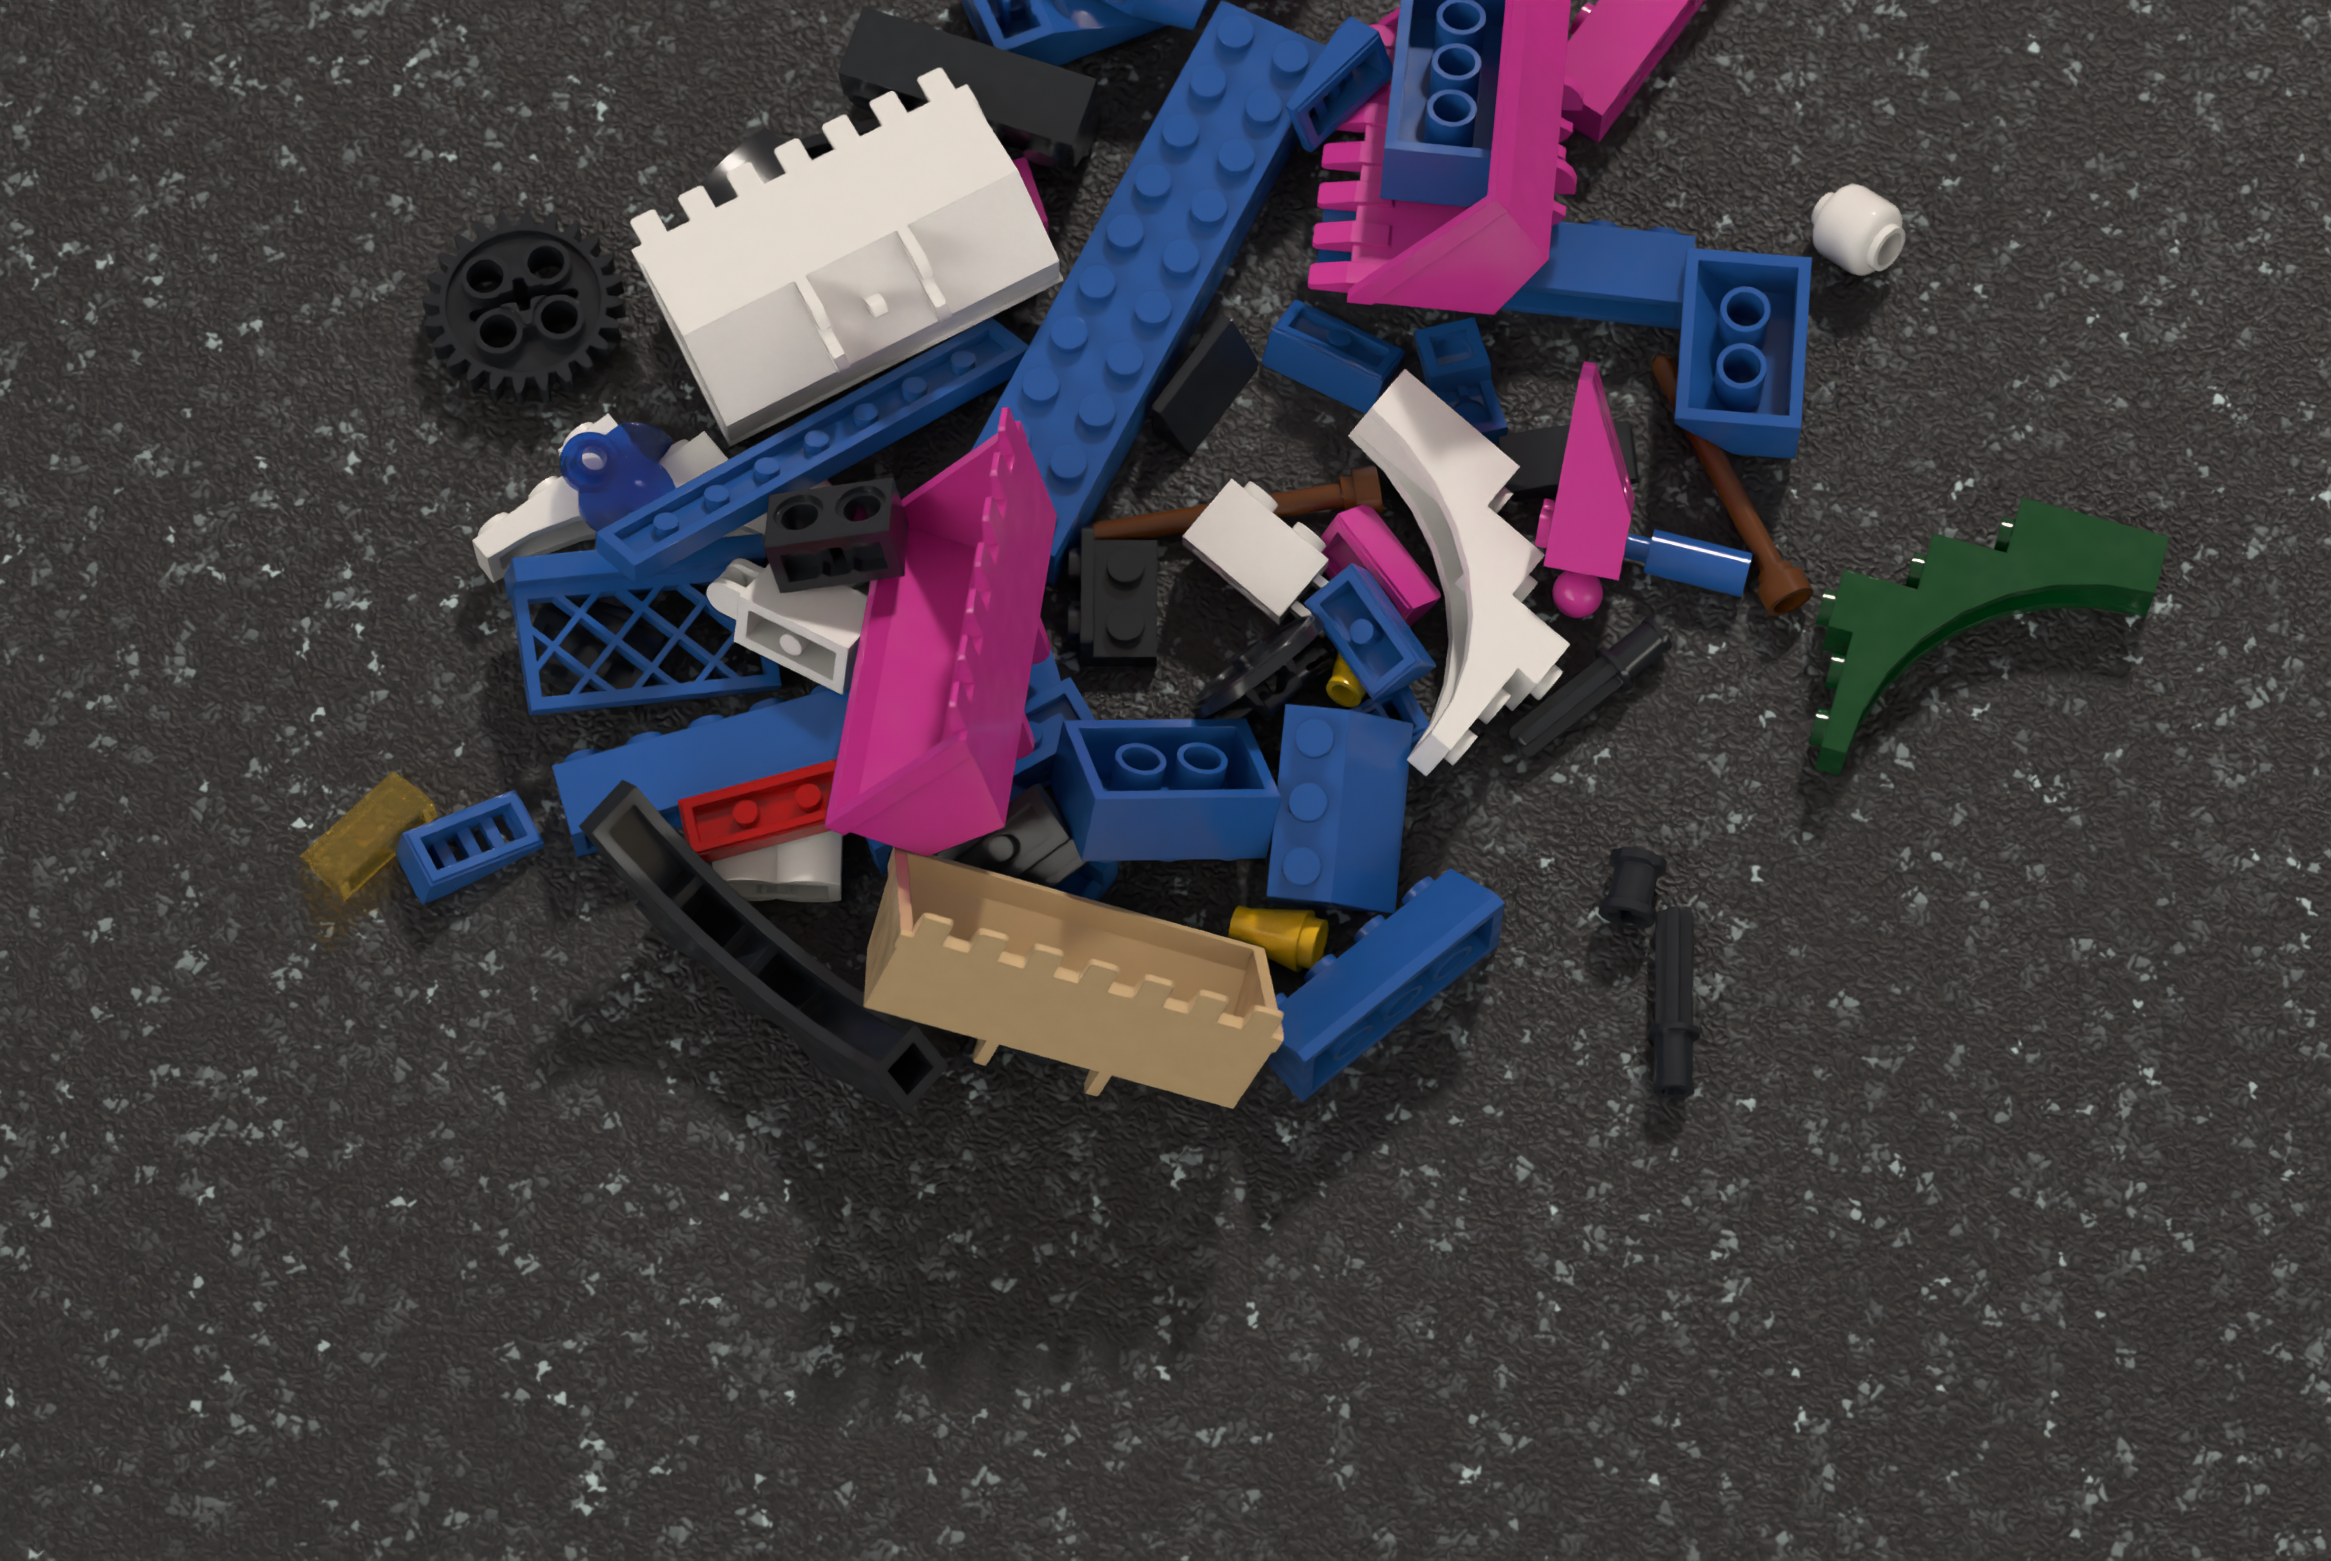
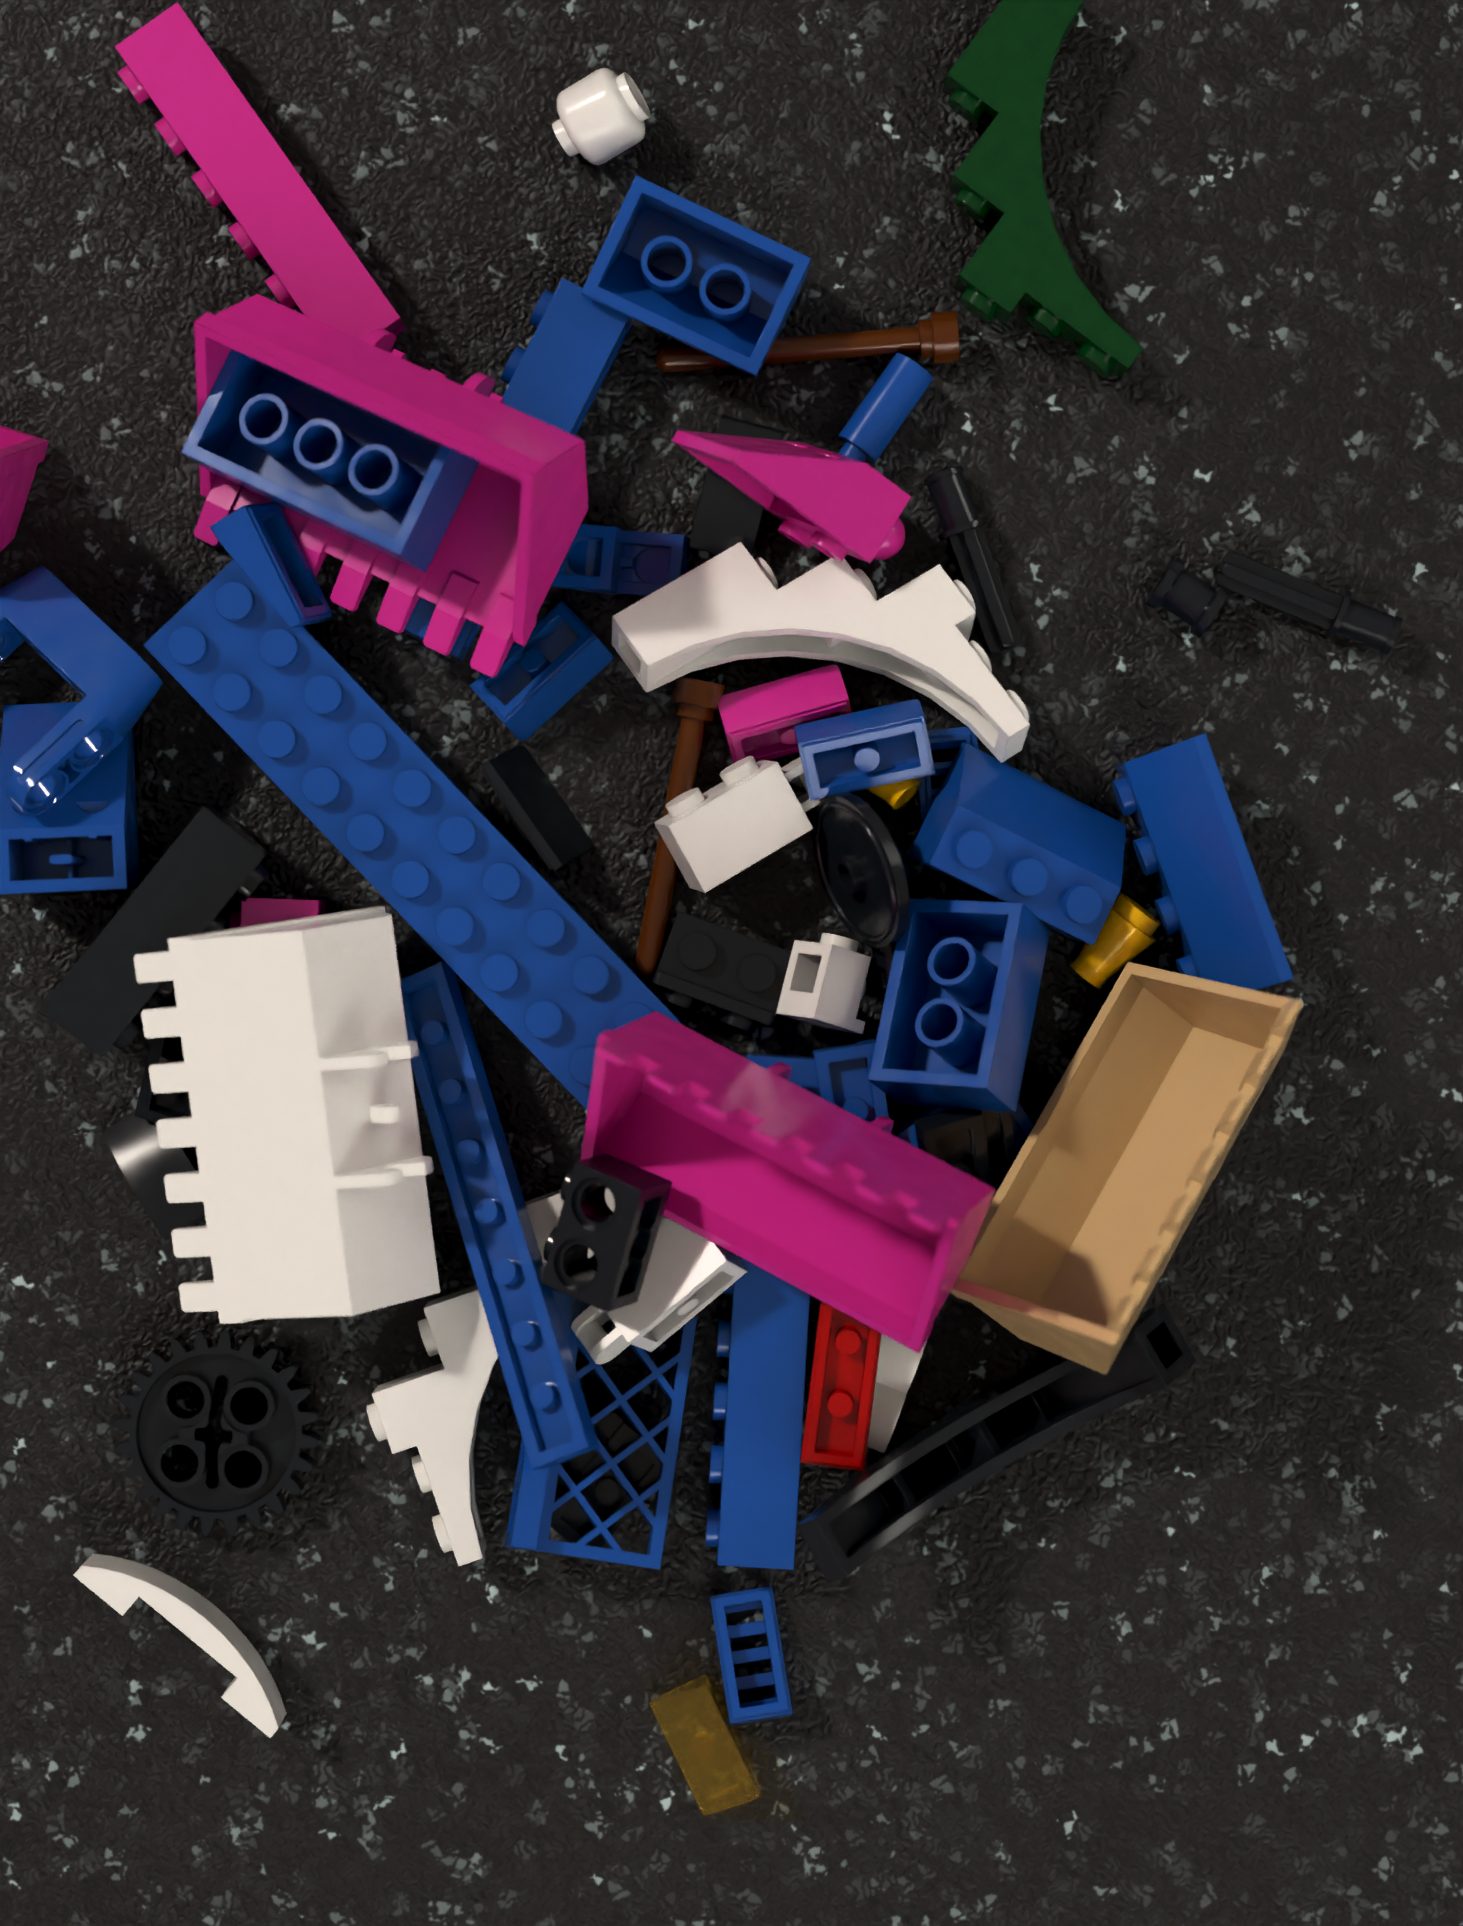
camera: 65 degrees left, 20 degrees up
(299, 409) = (252, 1690): none -> white slope
(628, 473) = (452, 1399): clear blue plate -> none
(1139, 684) = (825, 983): none -> white brick

